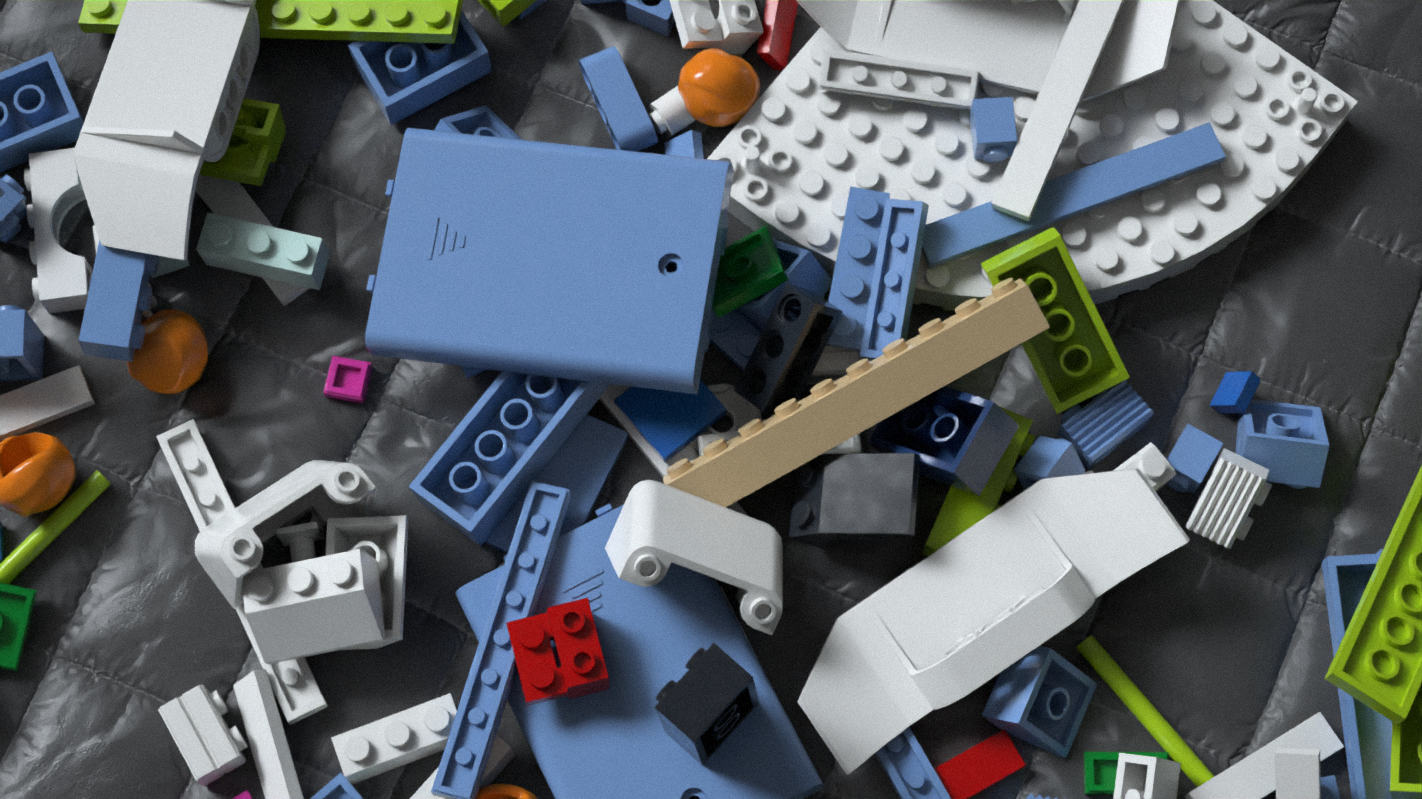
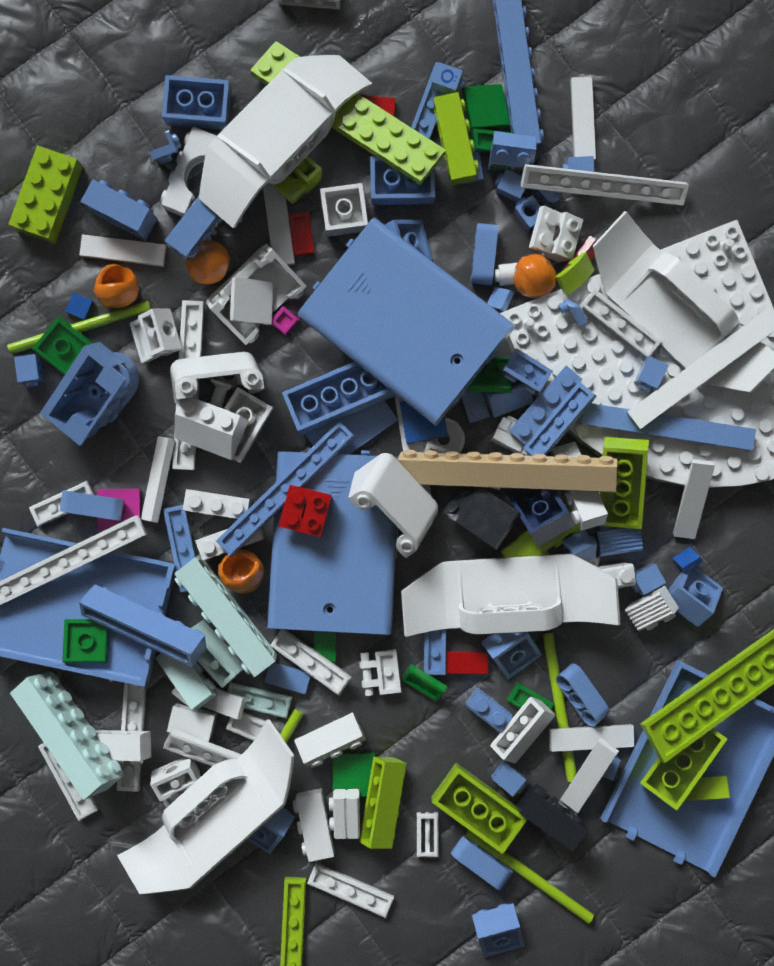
camera: 30 degrees right, 15 degrees up
(79, 663) = (92, 392): none -> medium blue brick
(139, 515) = (155, 334): none -> white brick
(203, 734) = (132, 452): white brick -> none
(263, 251) = (276, 237): light aqua brick -> none
(275, 356) = (262, 266): none -> white windscreen
(275, 372) = (251, 301): none -> white tile
(293, 214) = (301, 234): none -> red tile
(350, 151) = (344, 209): none -> white brick
(706, 702) = (356, 576): black brick -> none
(781, 47) = (576, 274): none -> lime slope
(788, 349) = (491, 426): black brick -> none
(794, 231) = (527, 371): none -> medium blue bracket
(814, 98) = (574, 309): none -> medium blue arm
(1012, 381) = (585, 505): none -> white brick
(1182, 287) = (693, 498): none -> white tile
(1204, 707) = (582, 695): none -> medium blue beam

